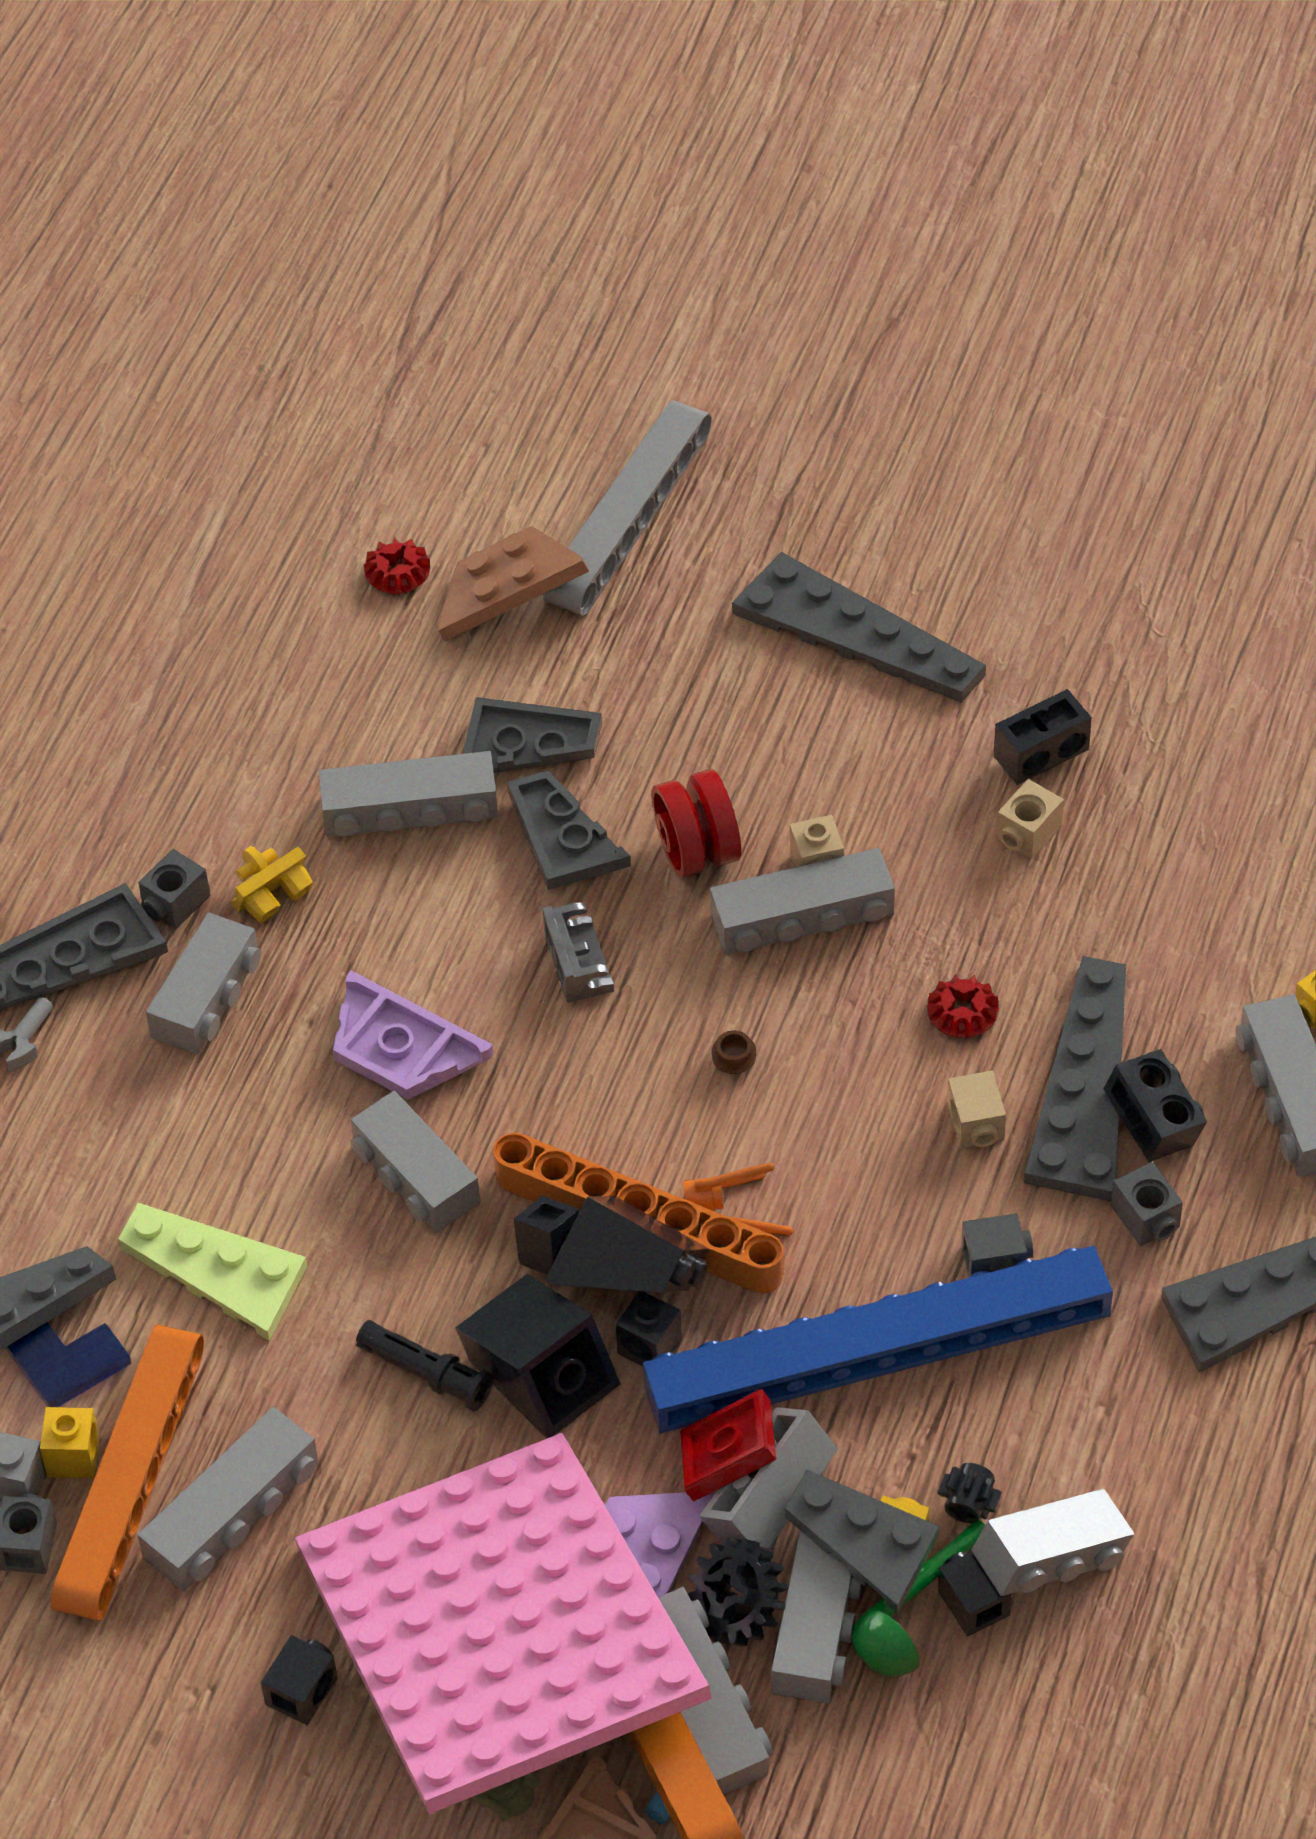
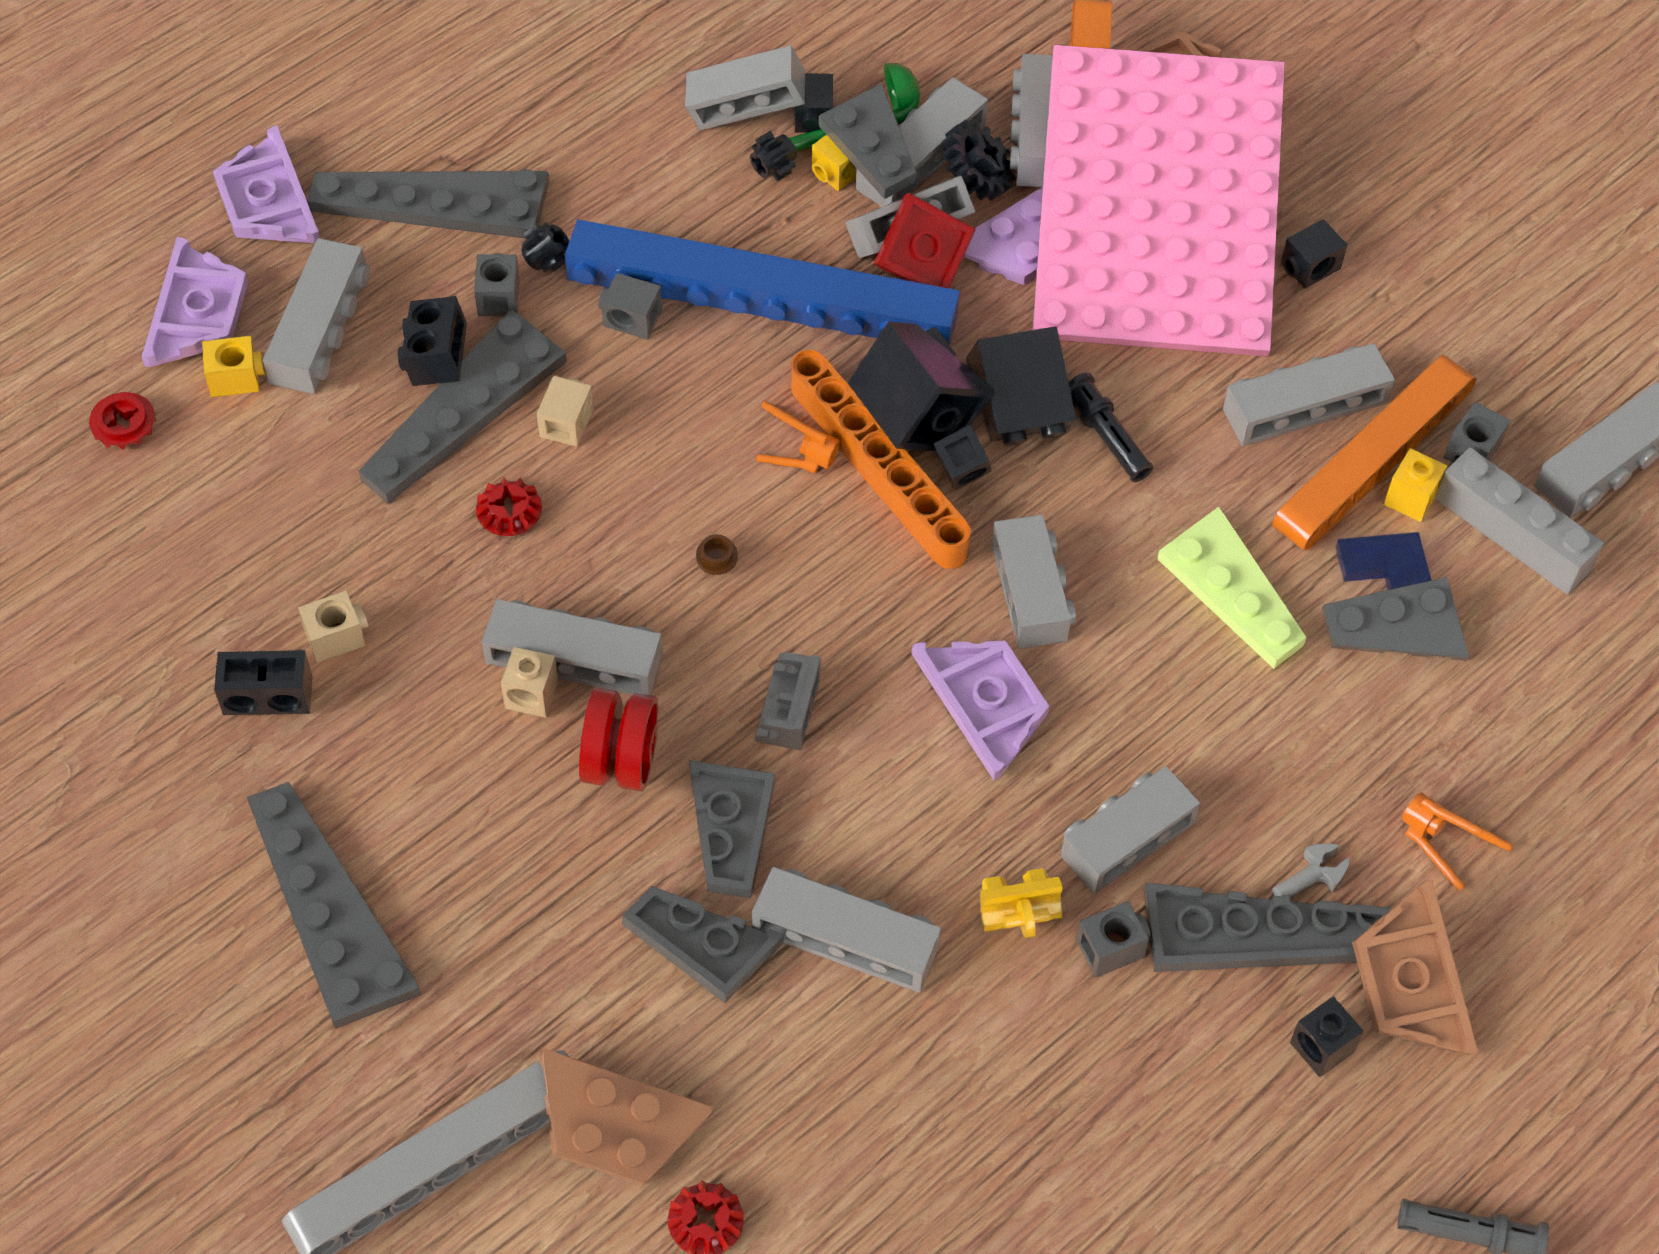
camera: 155 degrees left, 5 degrees up
(1129, 1263) = (545, 247): none -> black gear

